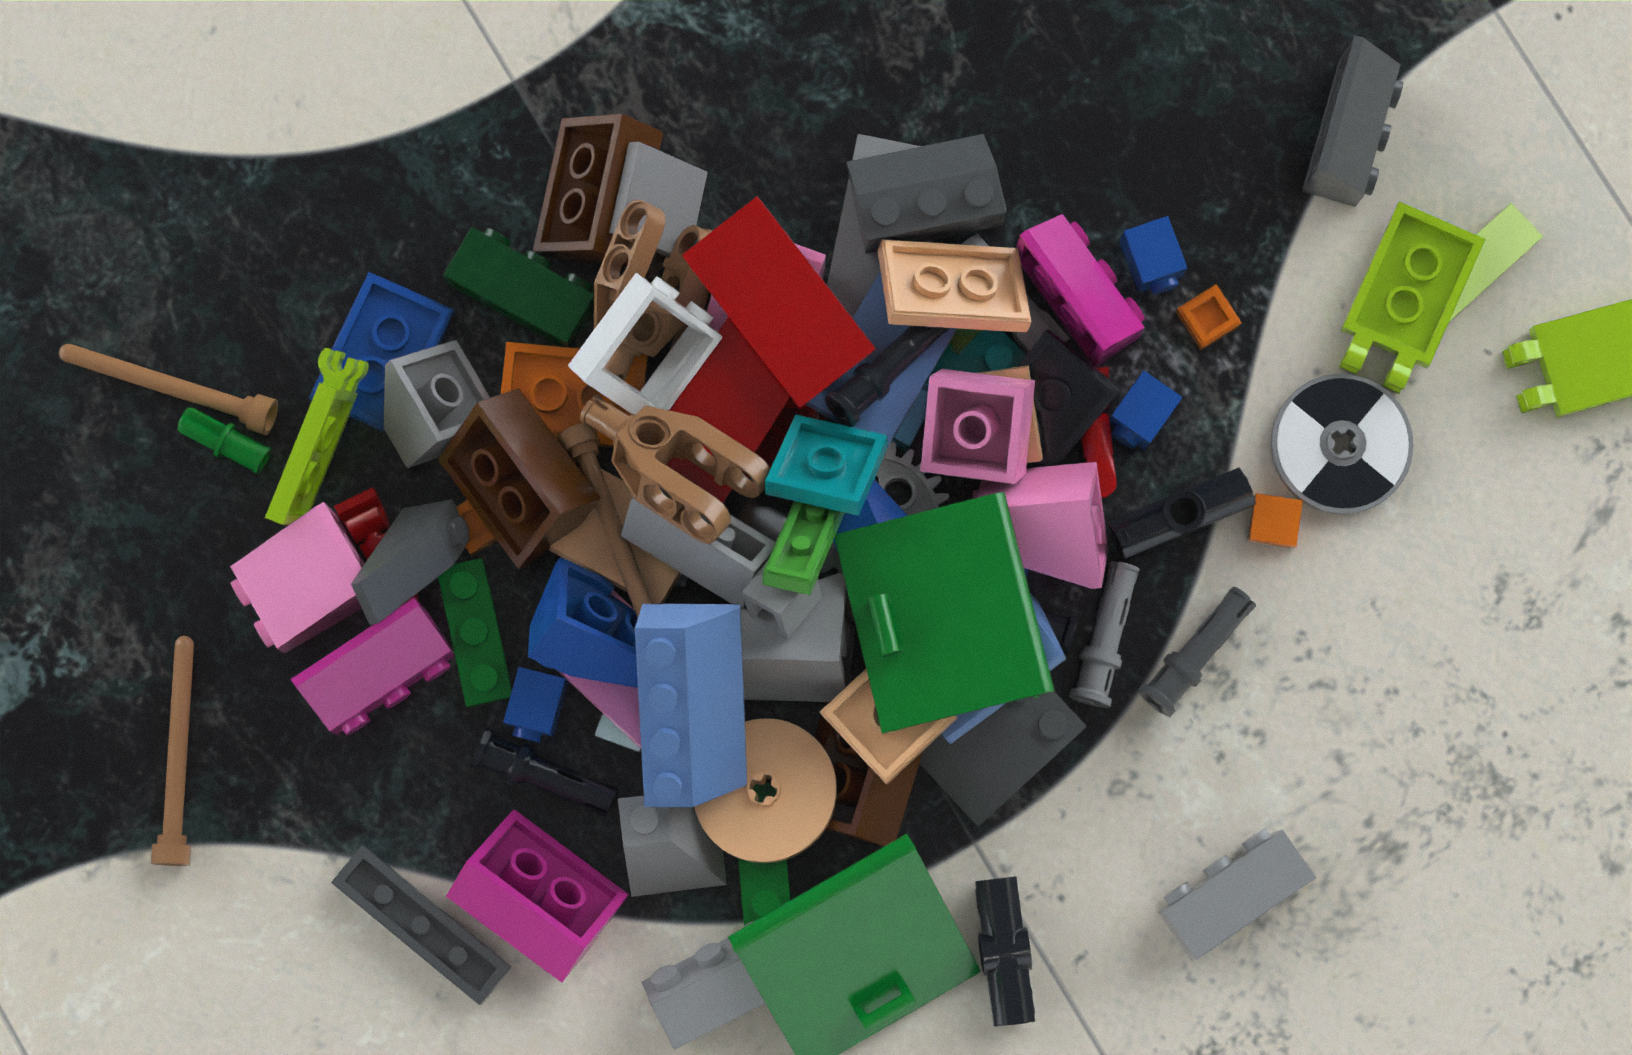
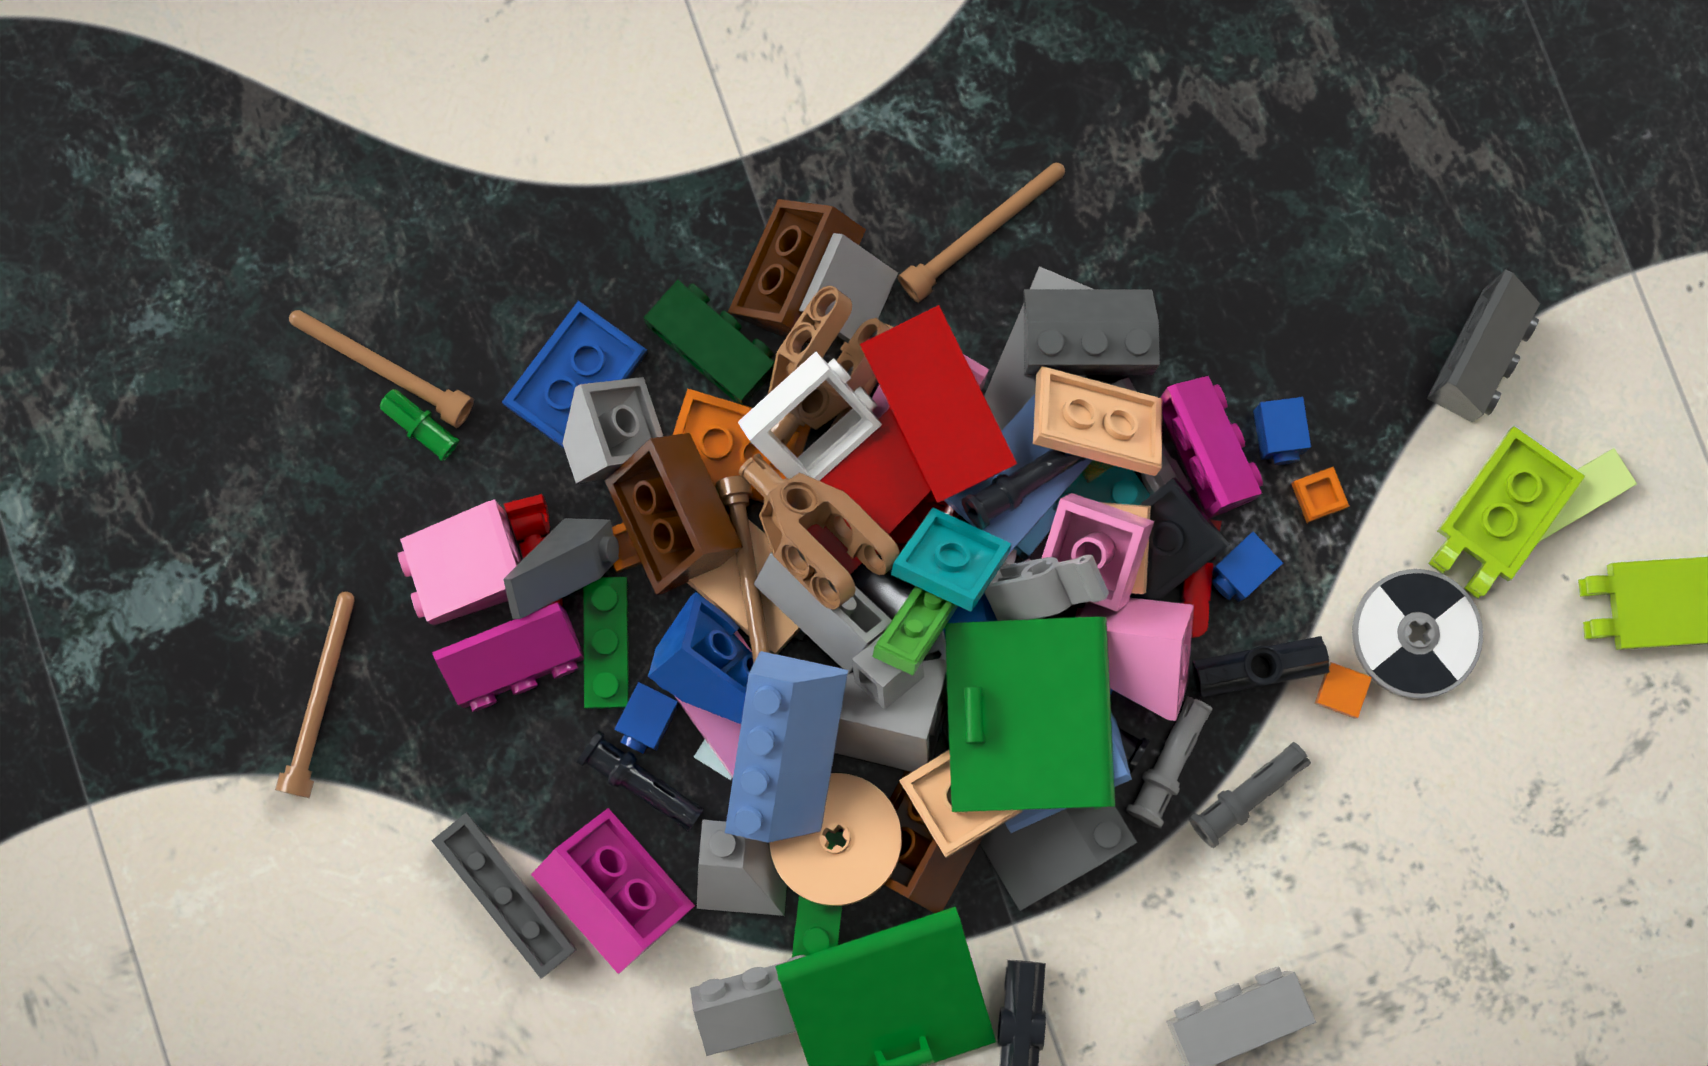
camera: 10 degrees right, 0 degrees up
(317, 437) = (501, 440): lime tile -> none
(732, 174) = (920, 279): none -> medium nougat piece
(932, 474) = (1044, 587): none -> light grey piece

